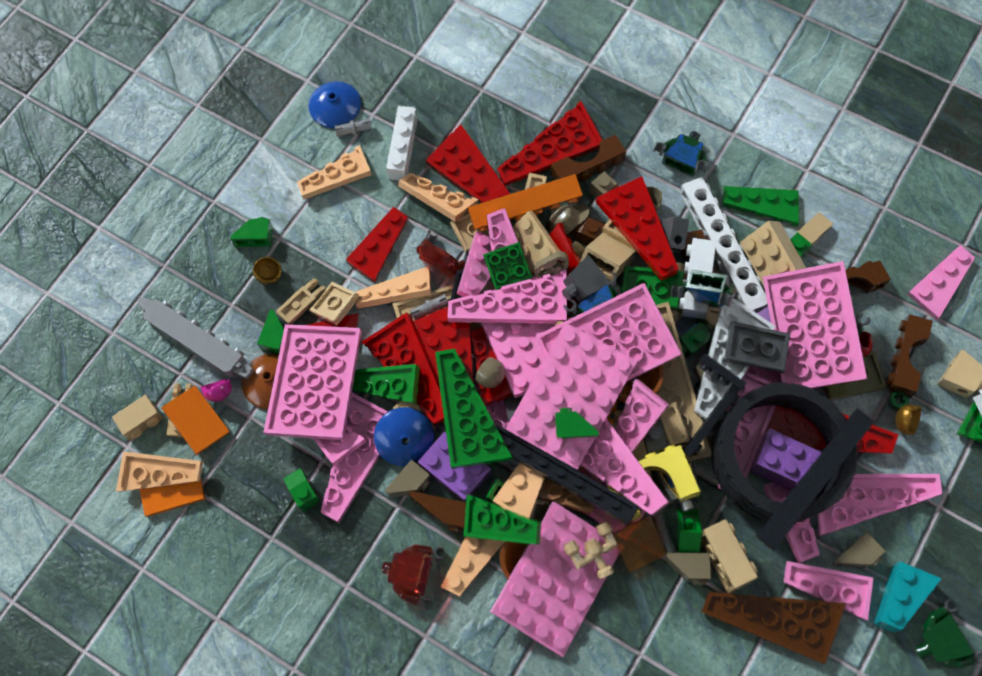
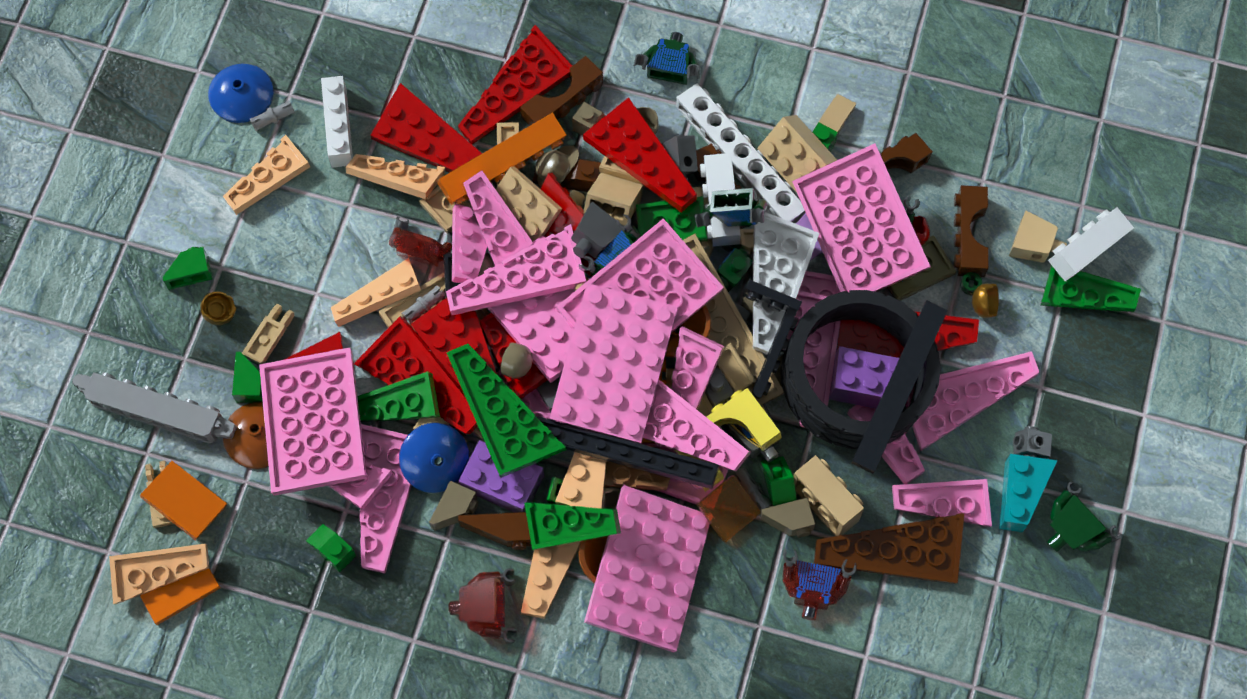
camera: 20 degrees left, 0 degrees up
(137, 417) = (112, 515): tan brick -> none
(217, 390) = (199, 460): dark pink hair -> none
(334, 303) = (309, 327): tan plate -> none
(374, 249) = (339, 252): red wing -> none
(507, 265) = (502, 236): green tile -> none
(551, 264) = (552, 222): dark tan beam -> none
(572, 425) = (625, 394): green slope -> none
(594, 550) = (681, 526): tan piece -> none
(697, 631) = (814, 584): none -> clear red torso
(757, 347) = (804, 260): dark grey tile -> none
(773, 203) = (780, 95): green wing -> none
(861, 553) = (969, 457): dark tan slope -> none
(921, 556) = (1032, 443): none -> dark grey brick
(940, 284) = (987, 145): bright pink wing -> none

